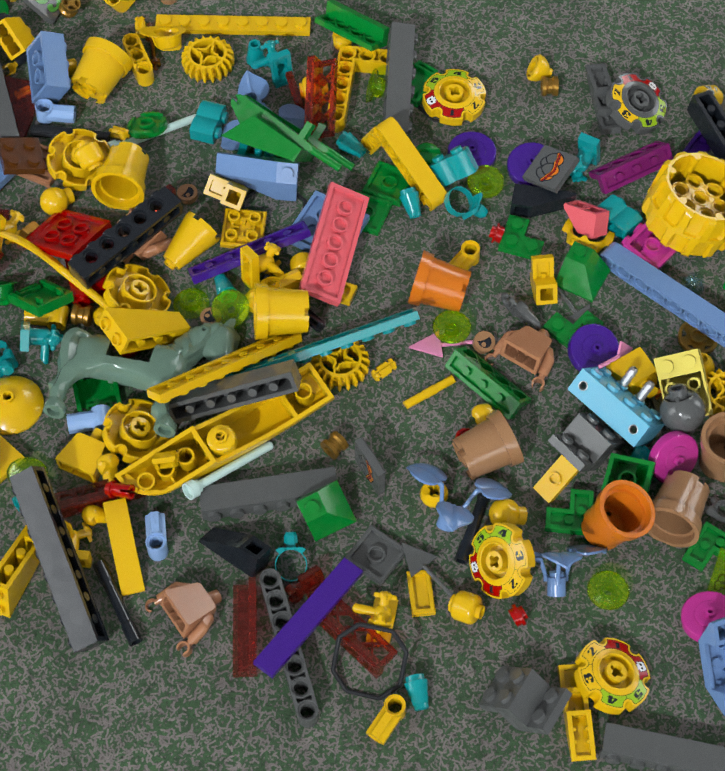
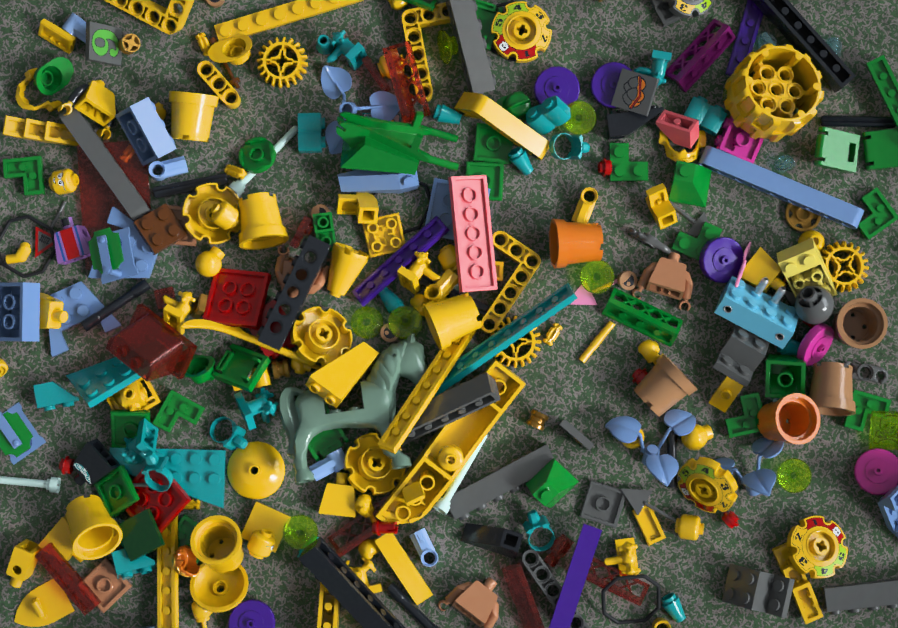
camera: 20 degrees left, 25 degrees up
(189, 201) = (324, 228): none -> green slope
(358, 307) = (512, 283): none -> yellow beam

